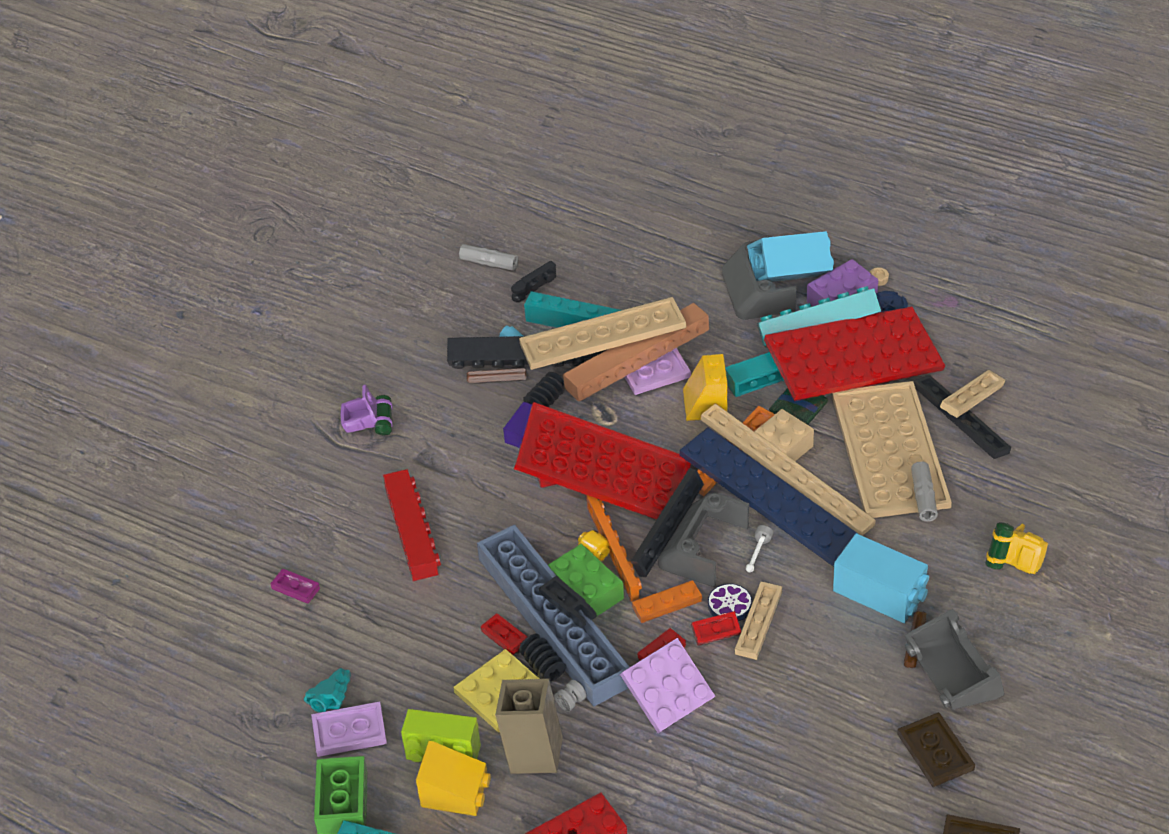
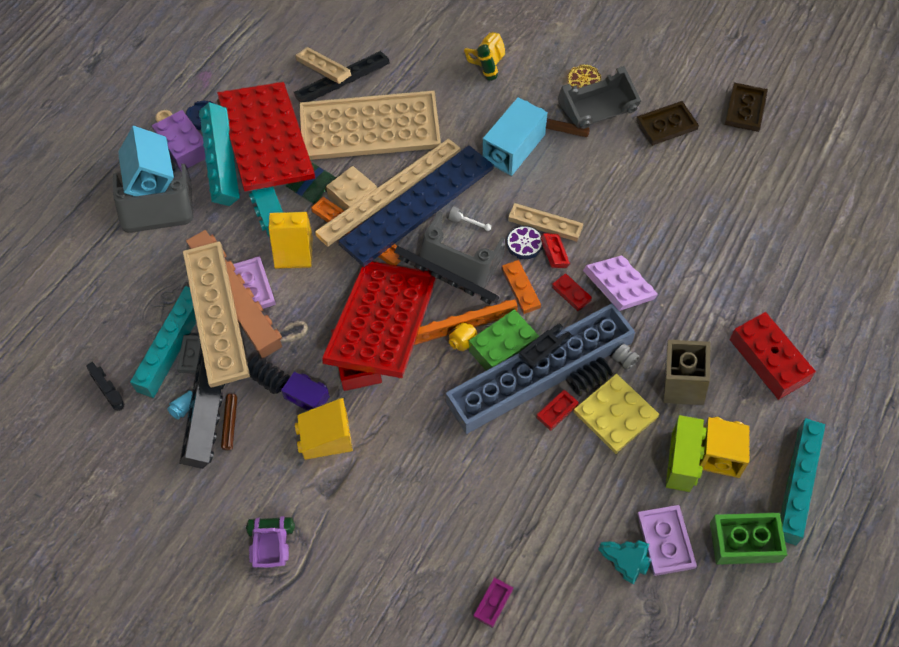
camera: 90 degrees left, 15 degrees up
(410, 524) = (421, 493): red brick -> none
(480, 444) = (324, 430): none -> yellow slope
(488, 257) = (56, 428): light grey axle -> none
(924, 491) = (428, 101): light grey axle -> none
(1008, 660) = (583, 76): none -> clear yellow tile

